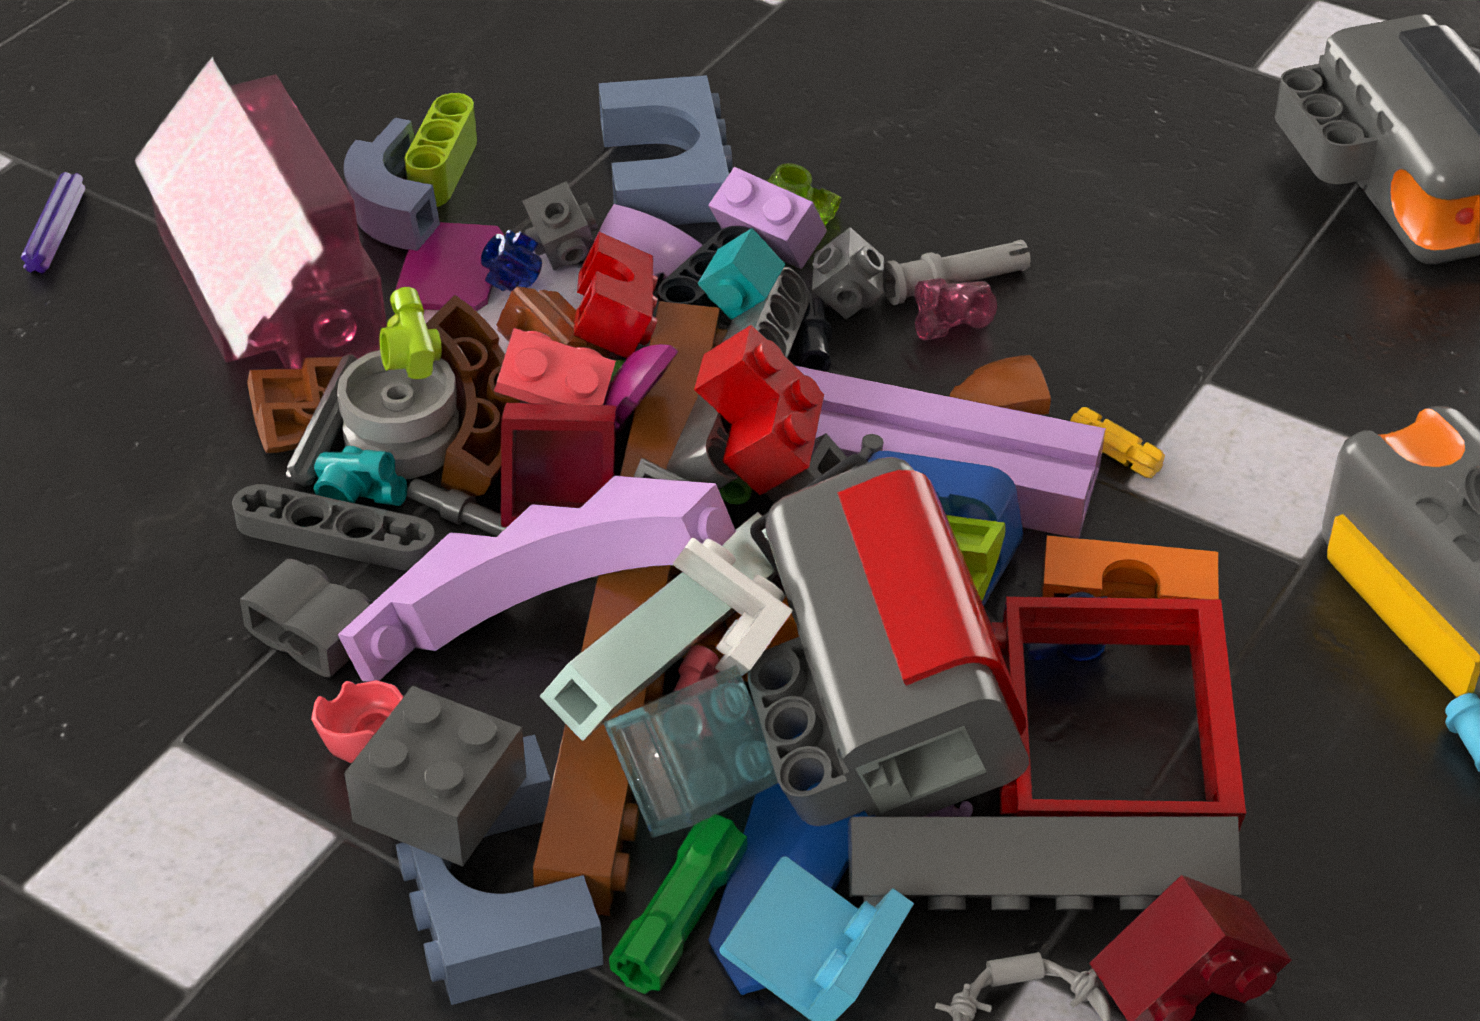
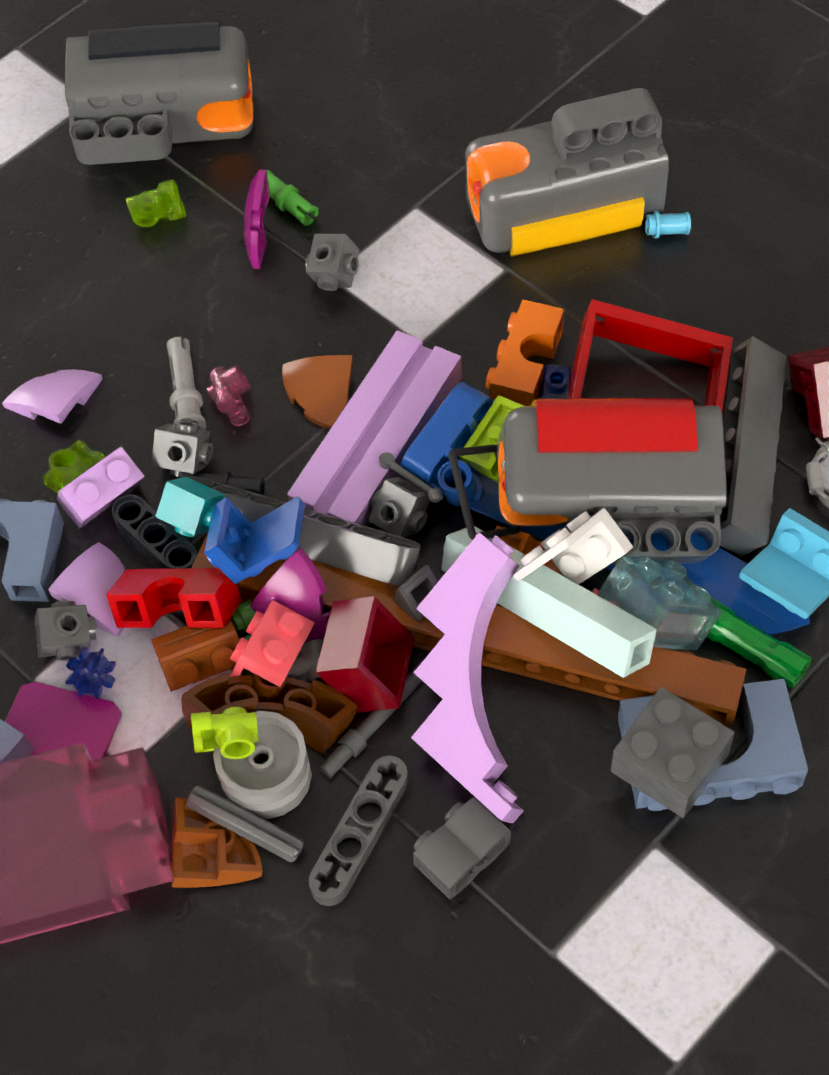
camera: 75 degrees left, 15 degrees up
(354, 716) = (576, 812): coral hair -> none
(361, 474) = (313, 812): teal plate -> none
(684, 306) = (245, 547): none -> blue bracket
(767, 403) = (372, 504): red brick -> none
(911, 168) = (53, 394): none -> lavender brick
(1123, 444) = (380, 337): yellow axle -> none
(1209, 357) = (332, 261): none -> dark grey brick
(1242, 192) = (156, 204): none -> clear neon green plate
(1249, 273) = (255, 209): none -> magenta brick
(1317, 308) = (288, 198): none -> bright green pin

